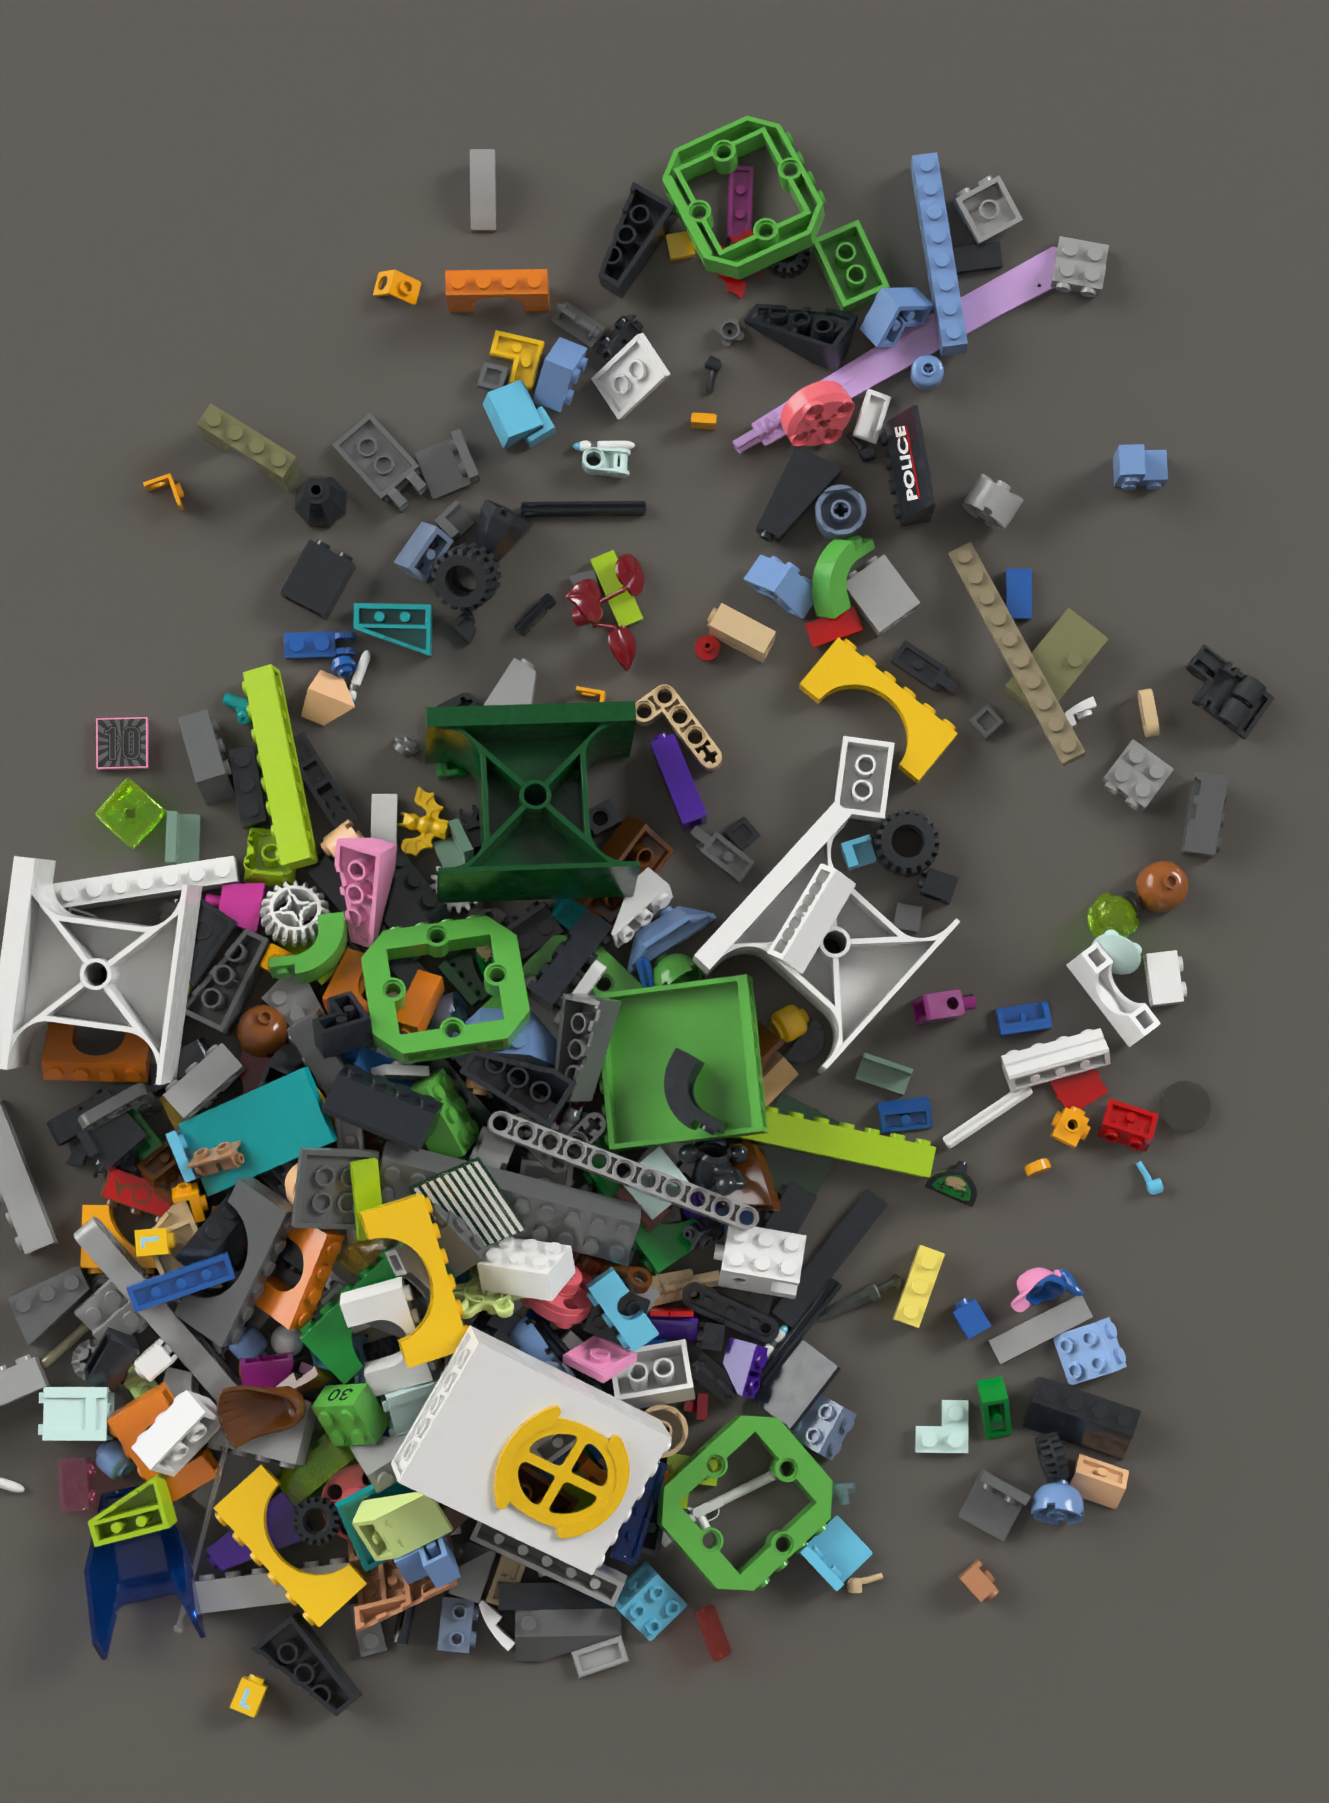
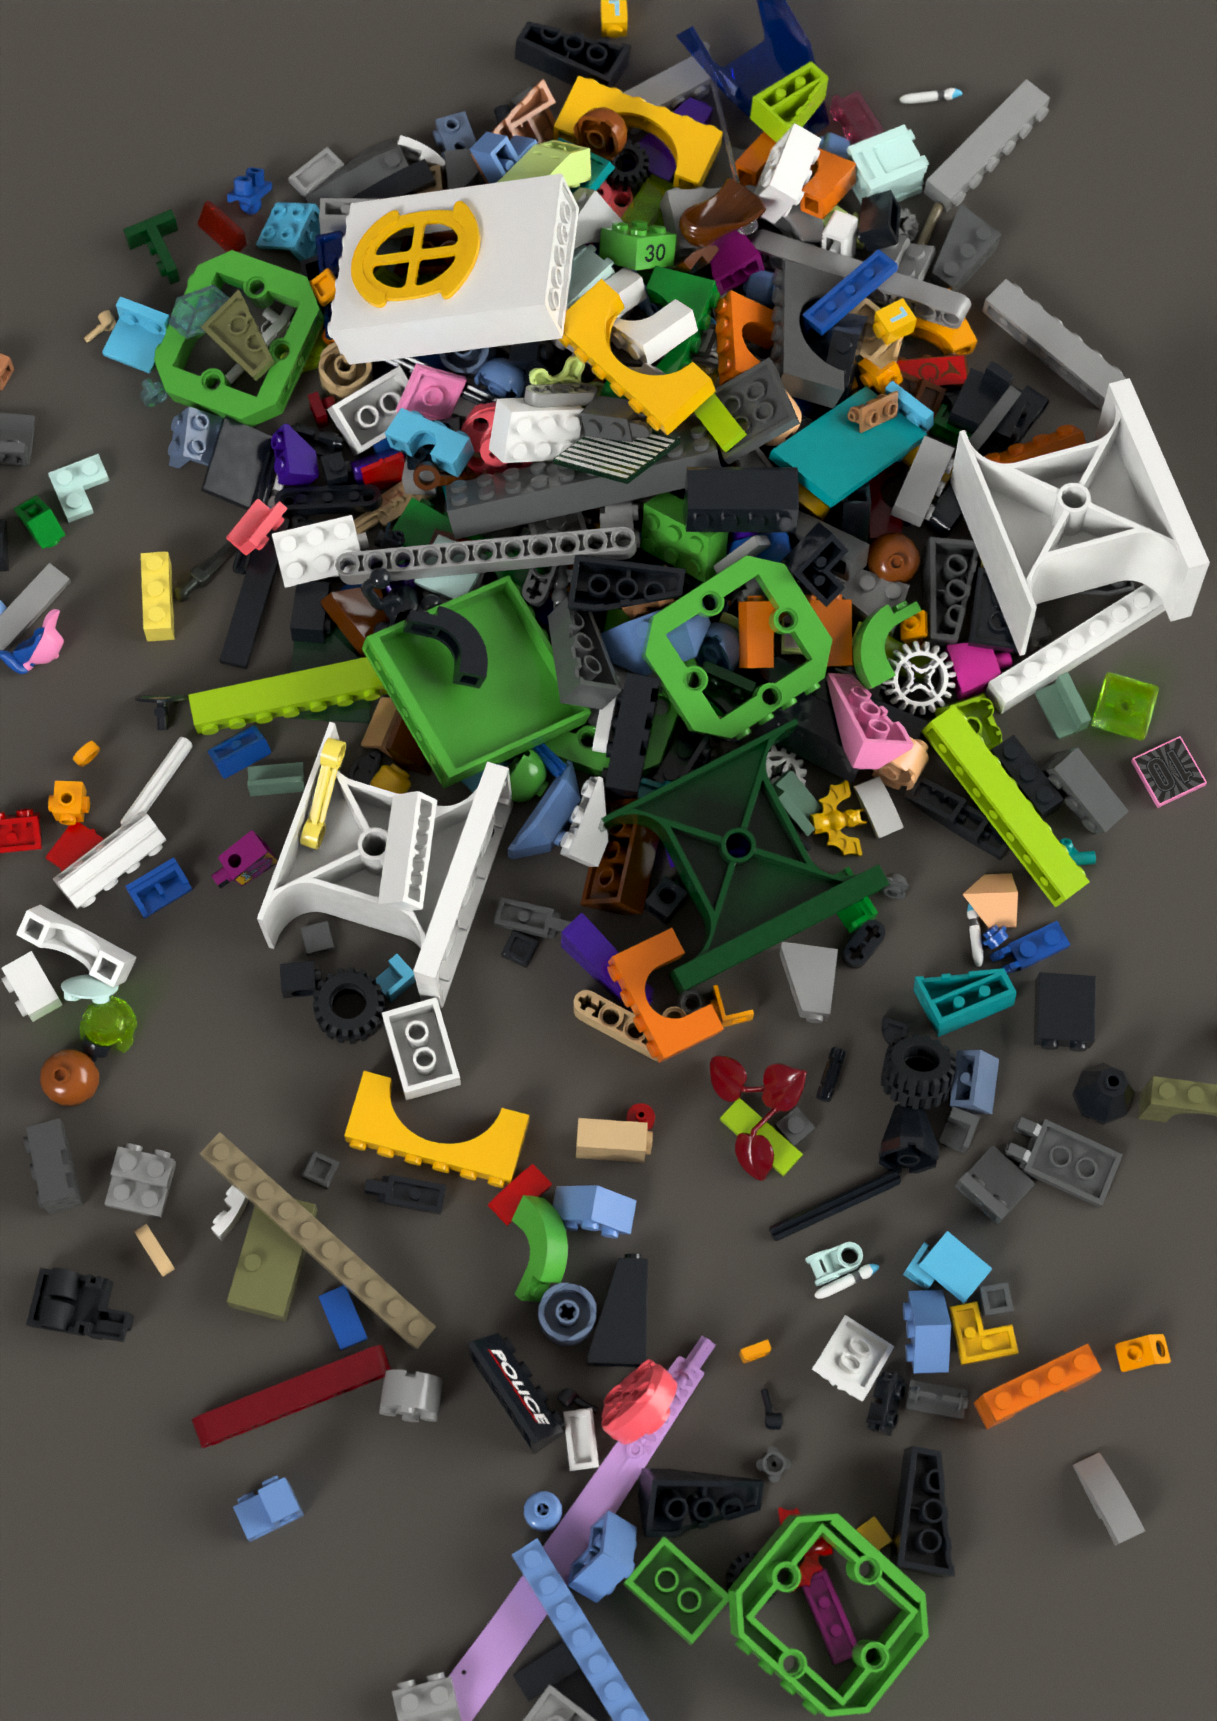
camera: 150 degrees right, 10 degrees down
(326, 1549) = (602, 132): none -> dark orange cylinder
(509, 1287) = (559, 394): none -> light grey beam
(648, 1509) = (324, 287): none -> light orange tile
(661, 757) = (664, 1035): none -> orange arch
(670, 1657) = (249, 190): none -> blue hips
(747, 1493) = (239, 336): none -> olive wing
(772, 1537) = (195, 309): none -> clear light blue slope
(780, 1643) = (151, 233): none -> dark green bracket
(805, 1308) = (255, 525): none -> coral bracket
(858, 1009) = (330, 761): none -> light yellow piece
(881, 594) = (487, 1249): light grey brick -> none
(970, 1318) = (95, 589): blue brick -> none
(1085, 548) = (291, 1396): none -> dark red beam

